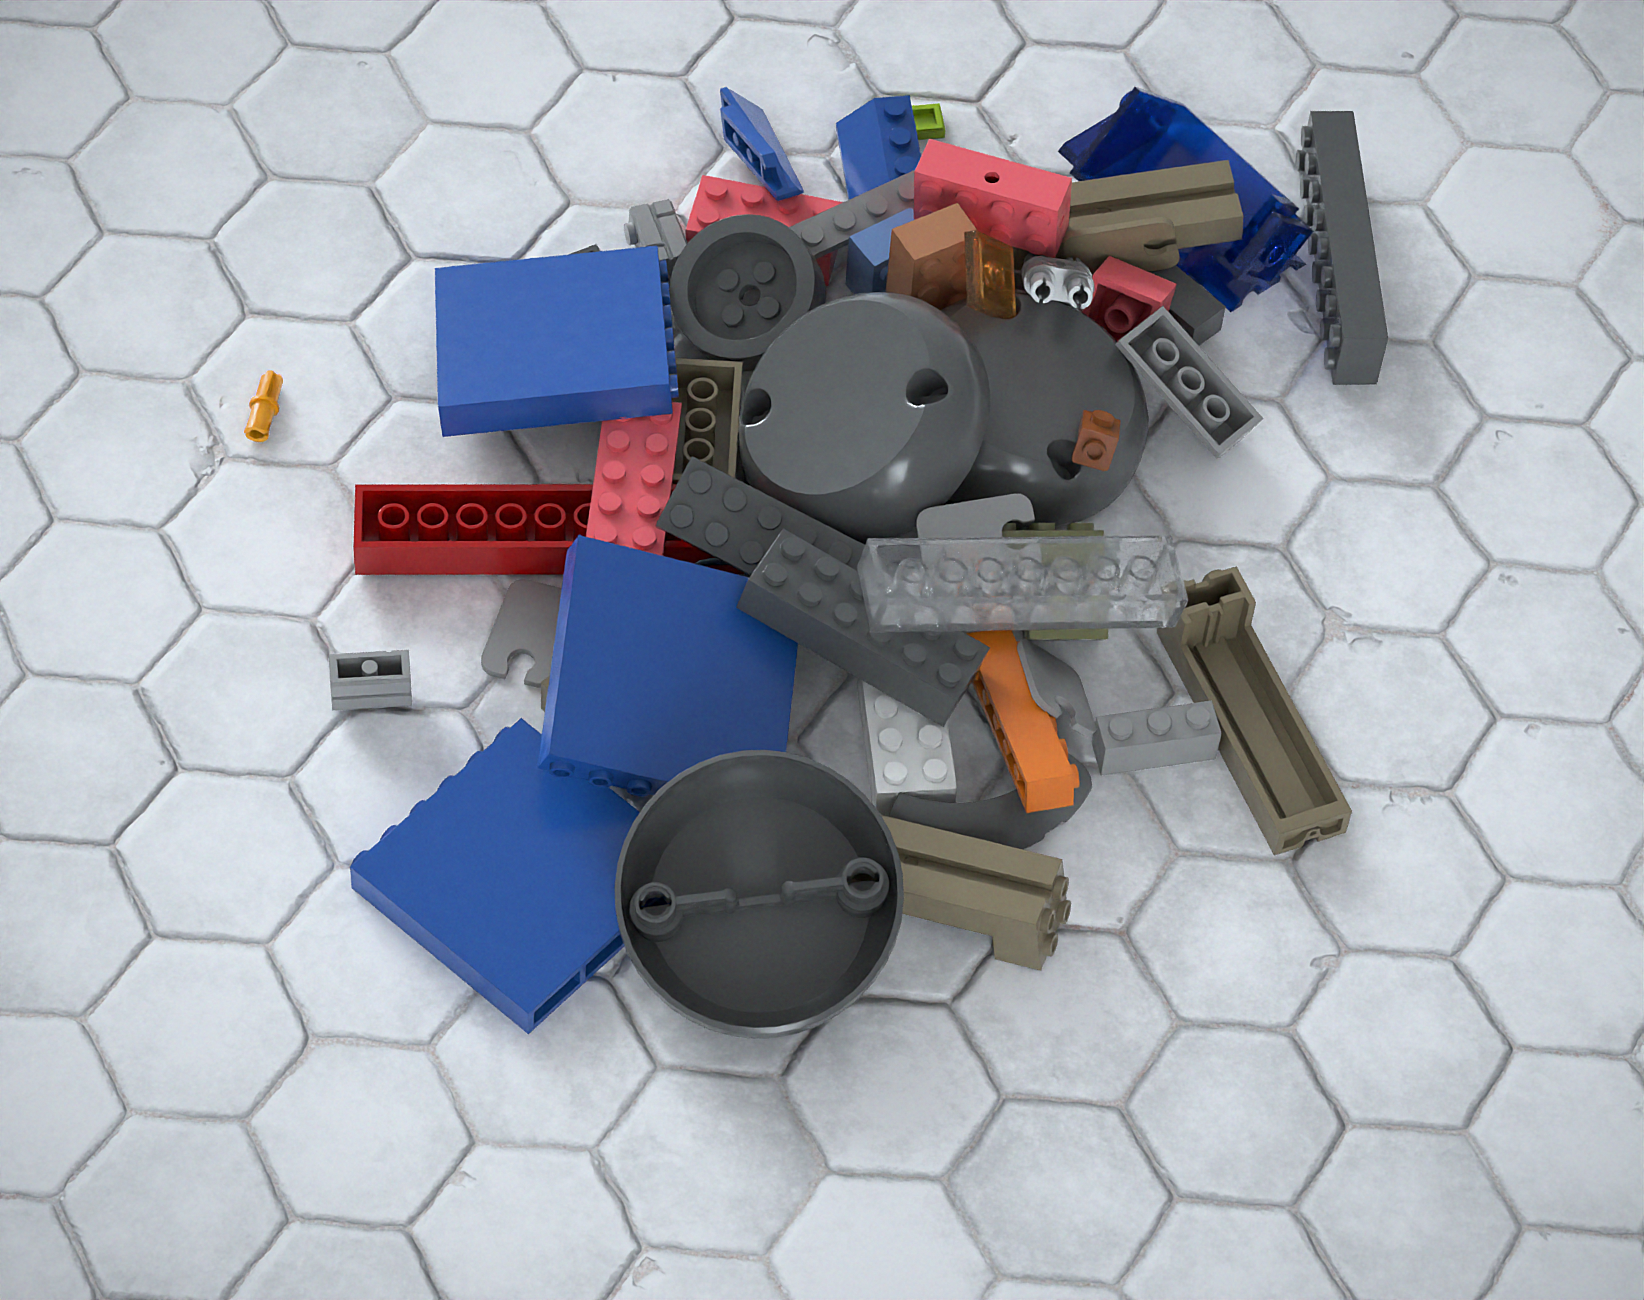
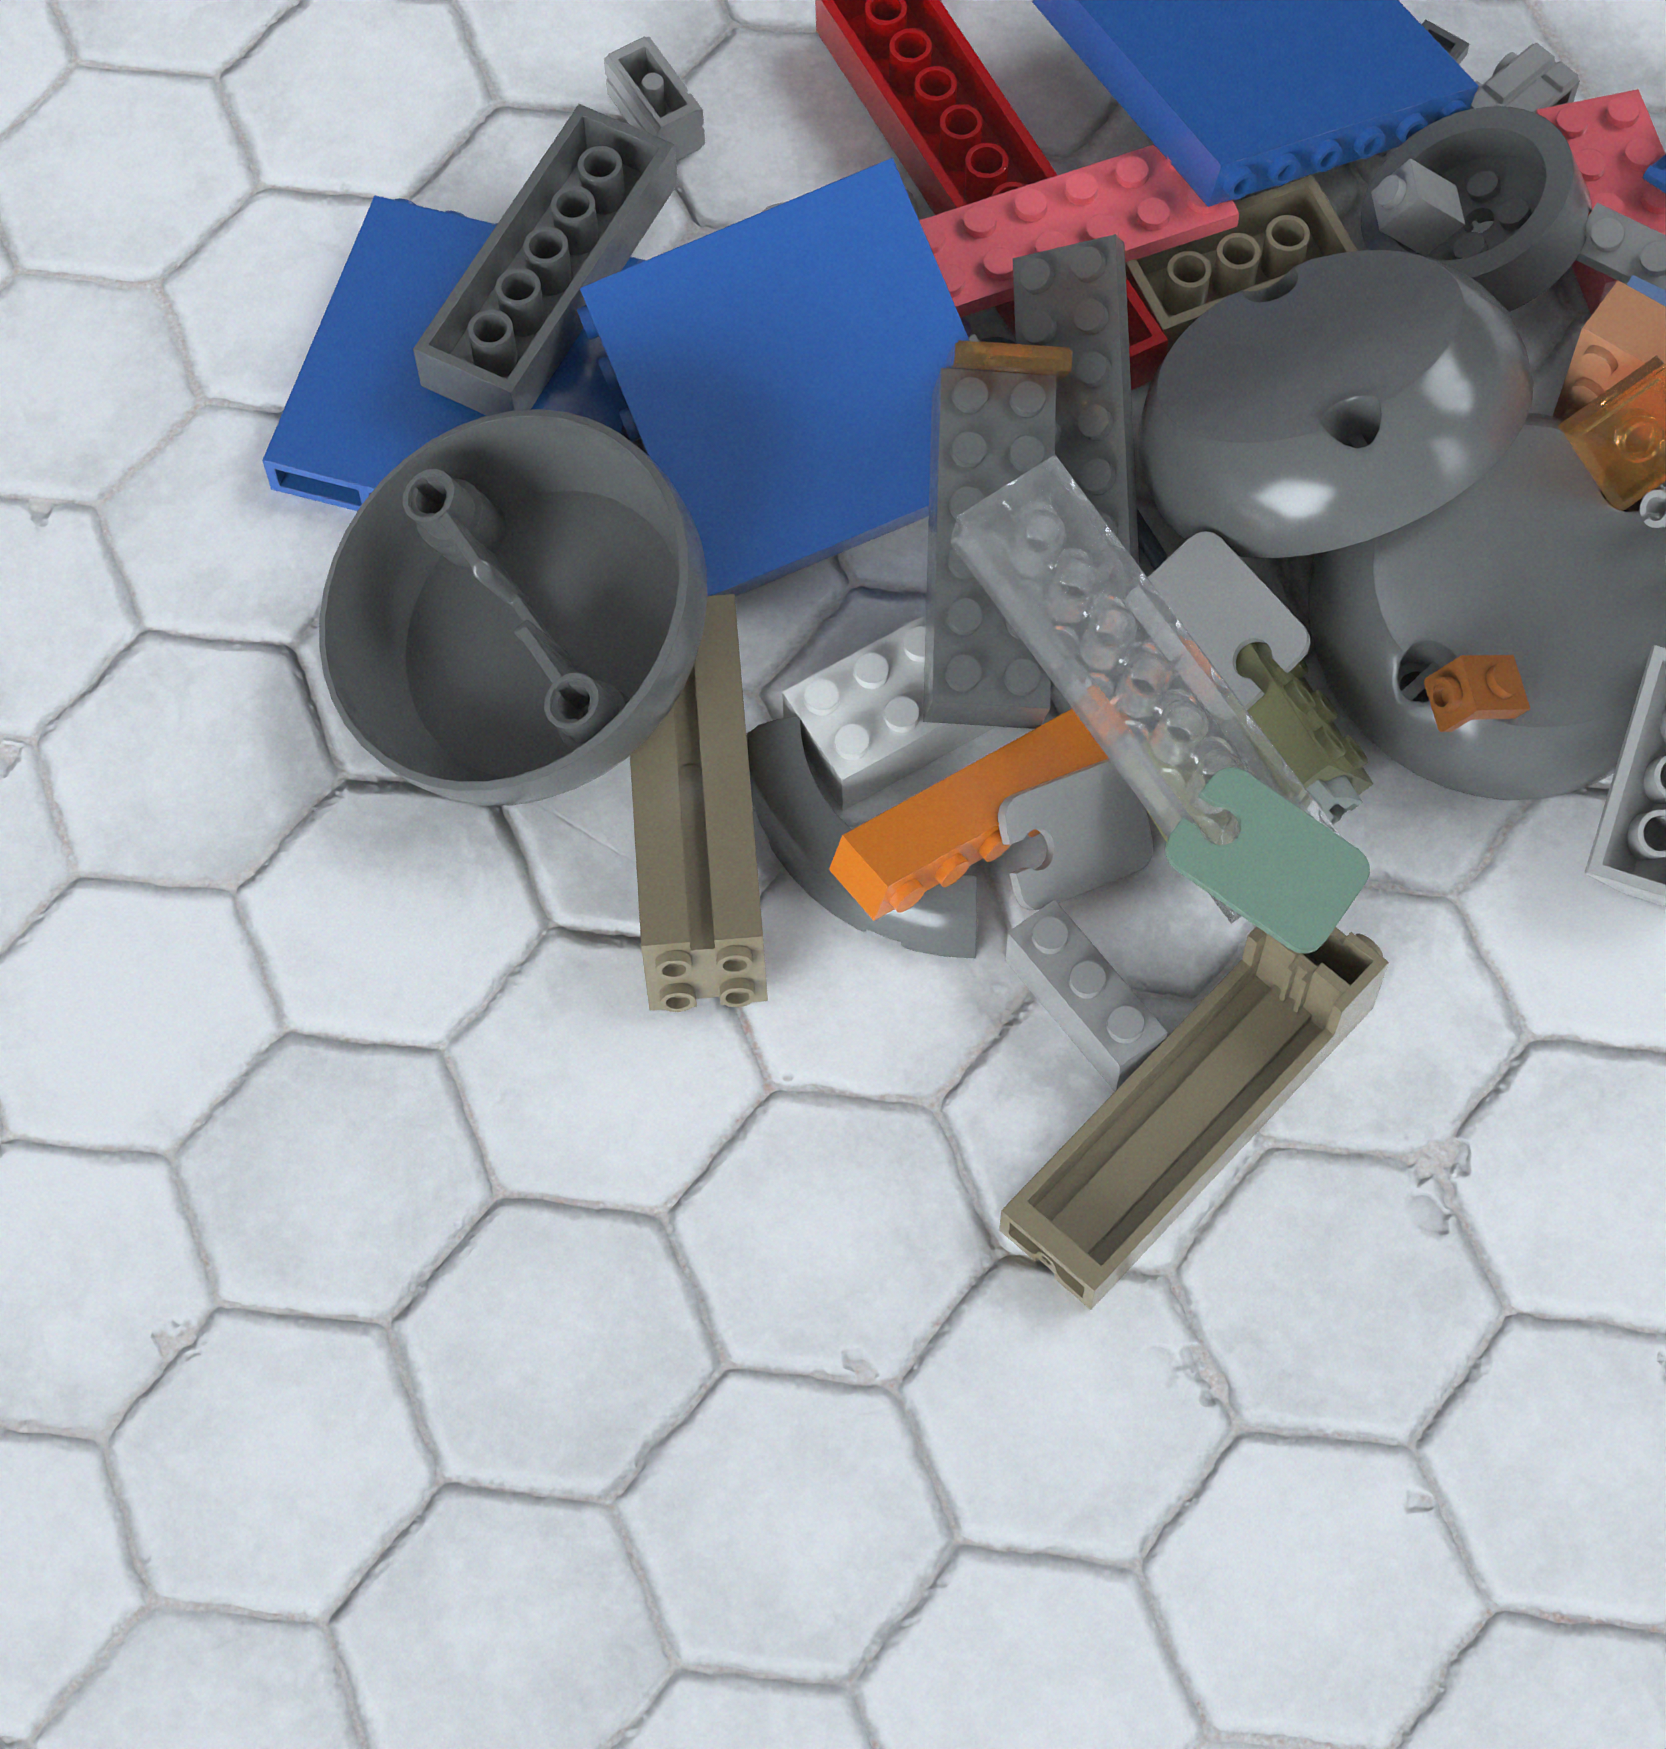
camera: 70 degrees right, 10 degrees up
(493, 779) = (564, 230): none -> dark grey brick
(731, 315) = (1417, 207): none -> light grey brick
(759, 547) = (1011, 358): none -> clear orange tile
(1179, 569) = (1281, 868): none -> sand green piece

